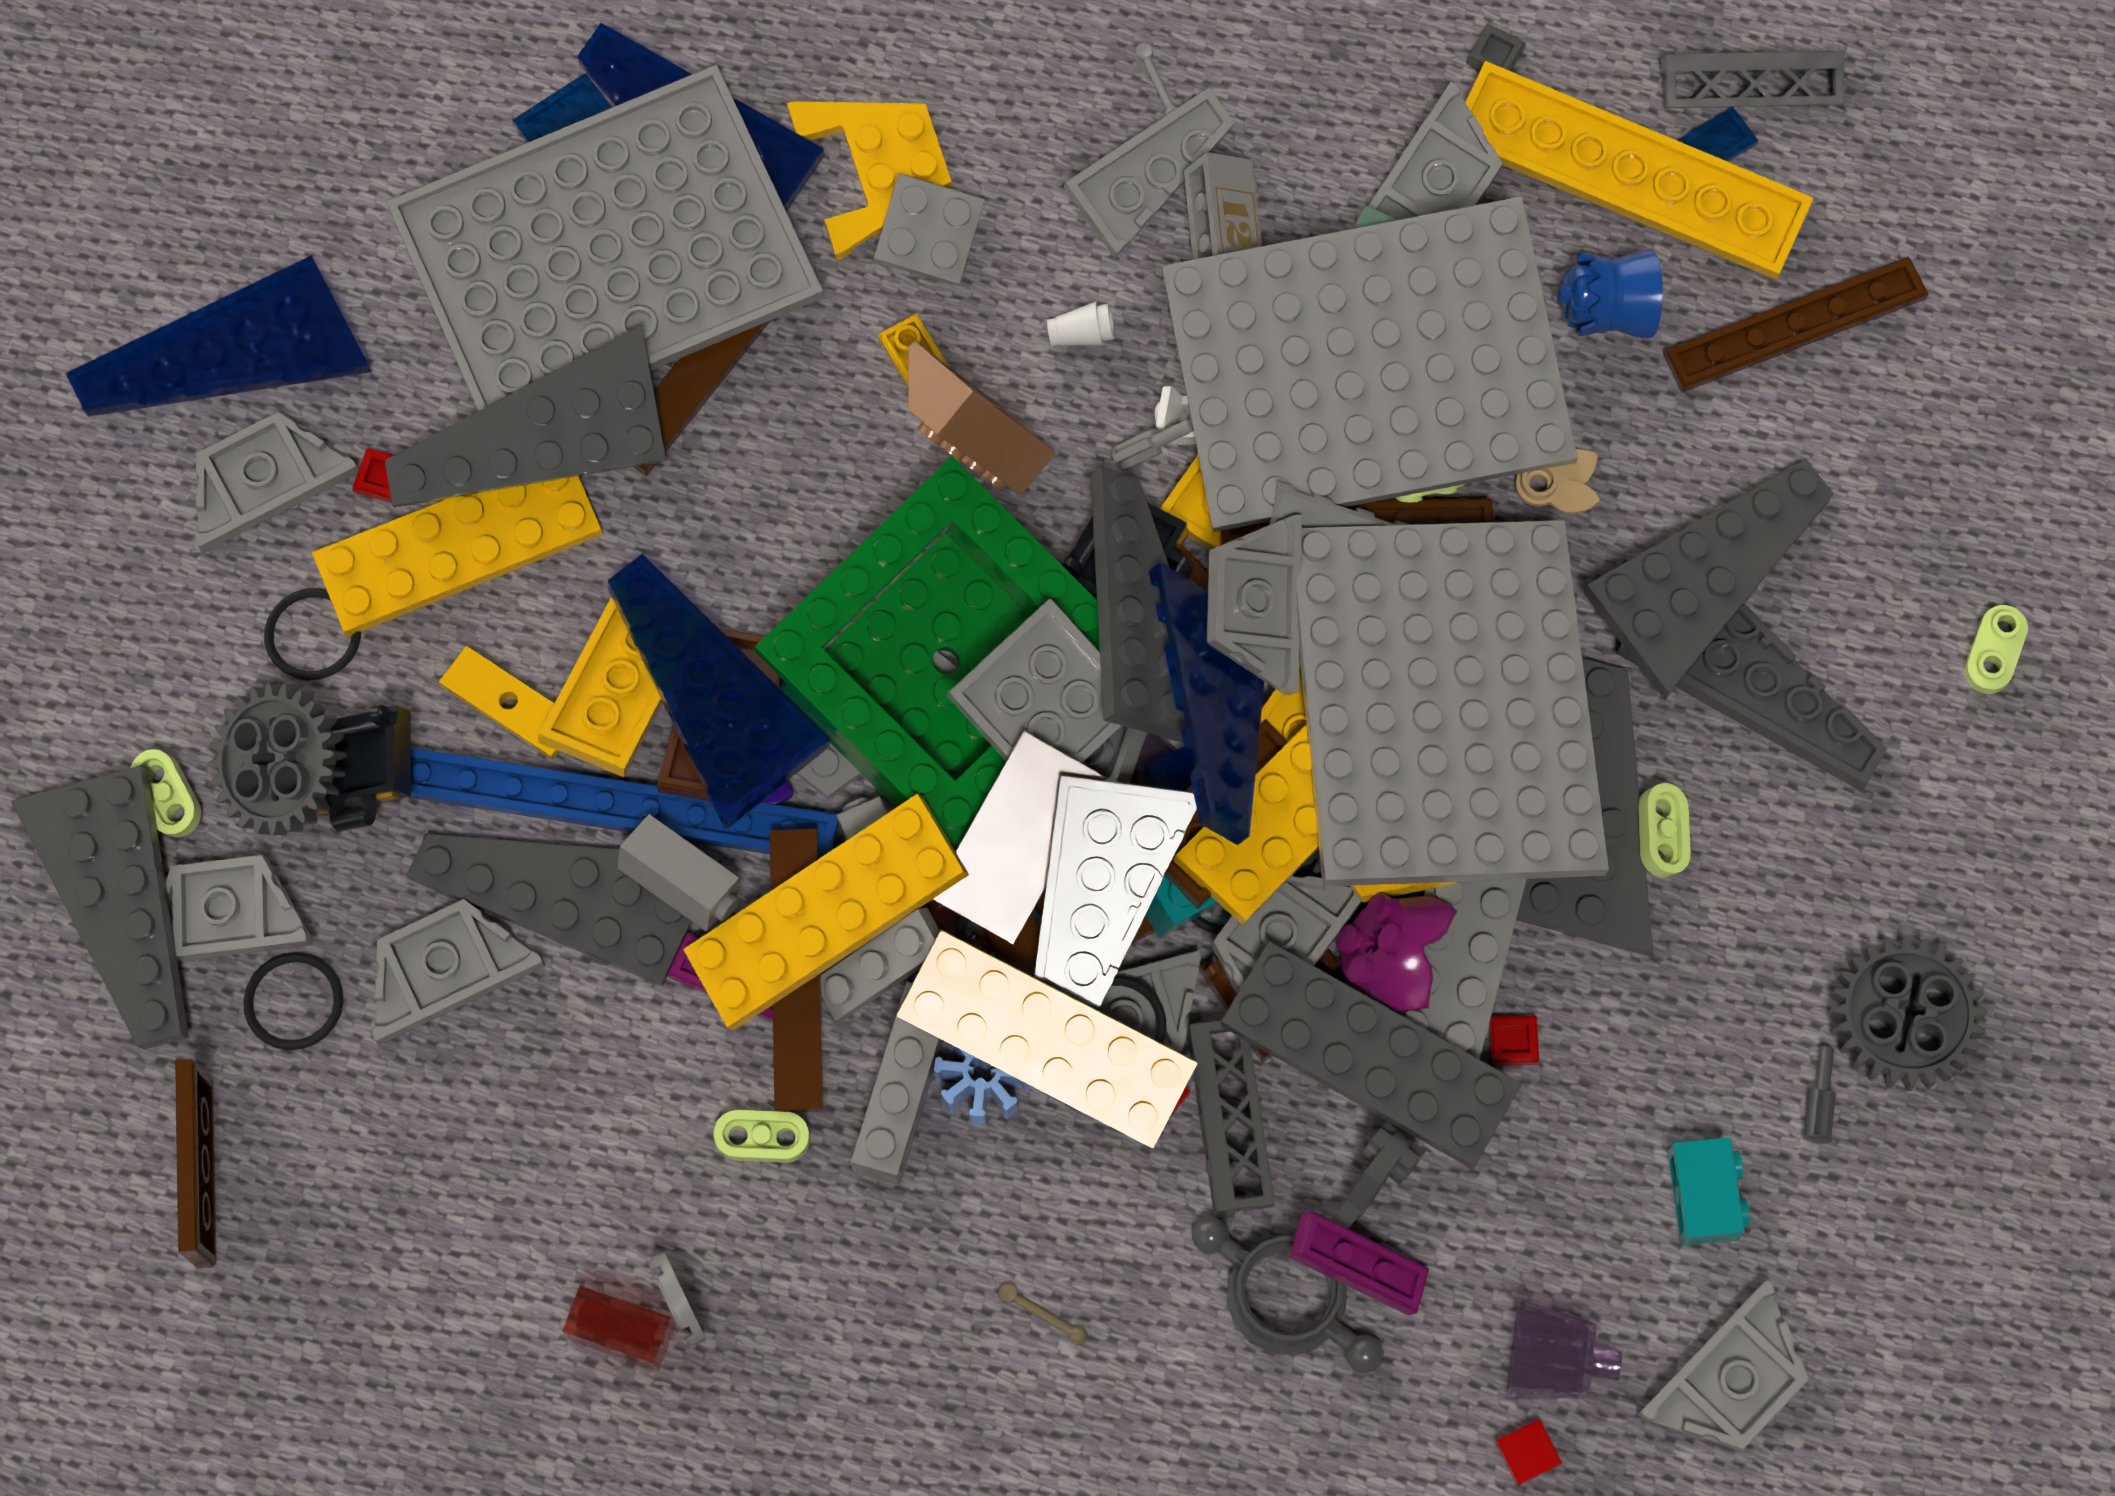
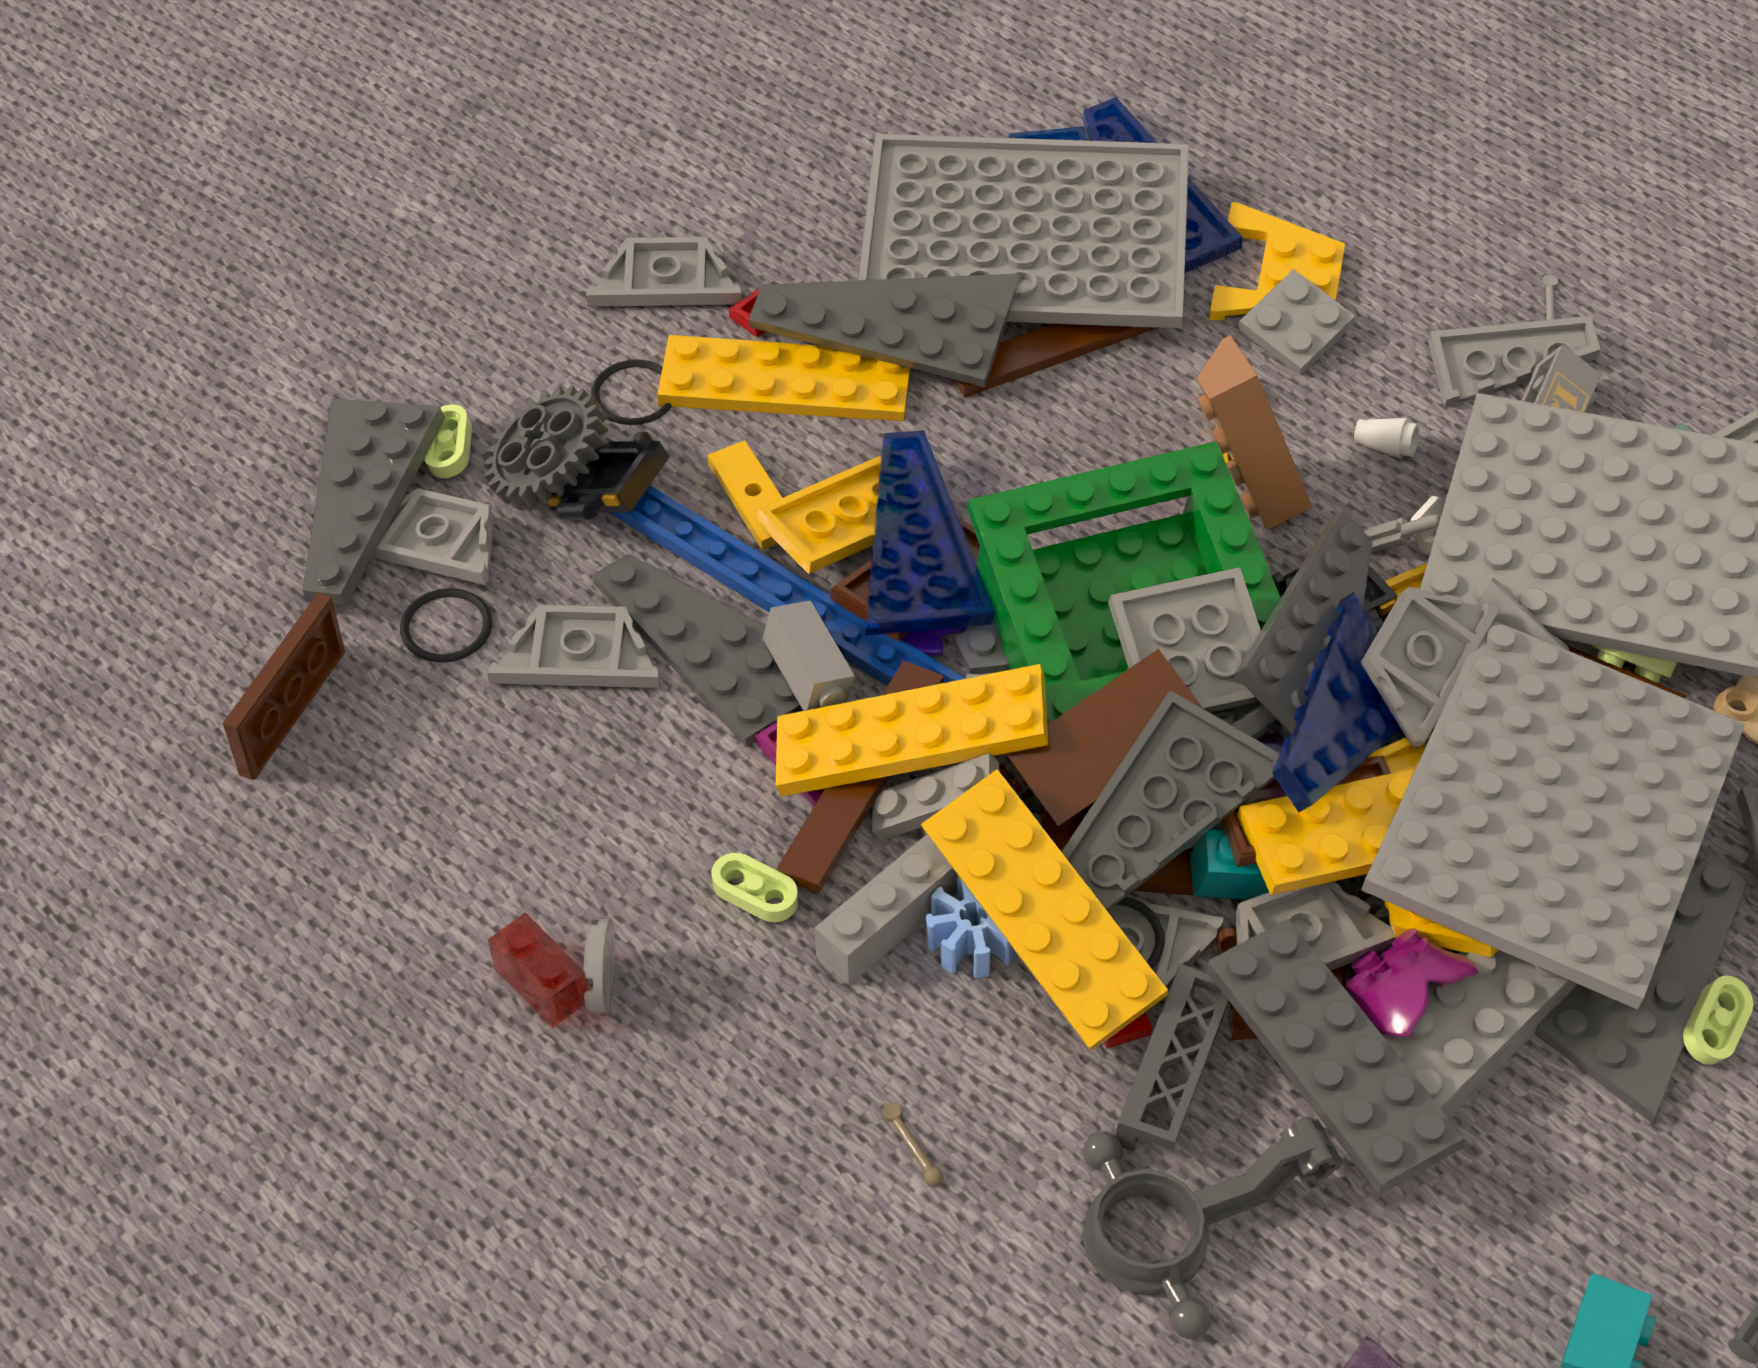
camera: 30 degrees right, 20 degrees down
(248, 341) = (721, 190): clear blue wing -> none
(1359, 1263) = (1227, 1231): magenta tile -> none
(1513, 1040) = (1482, 1128): red tile -> none

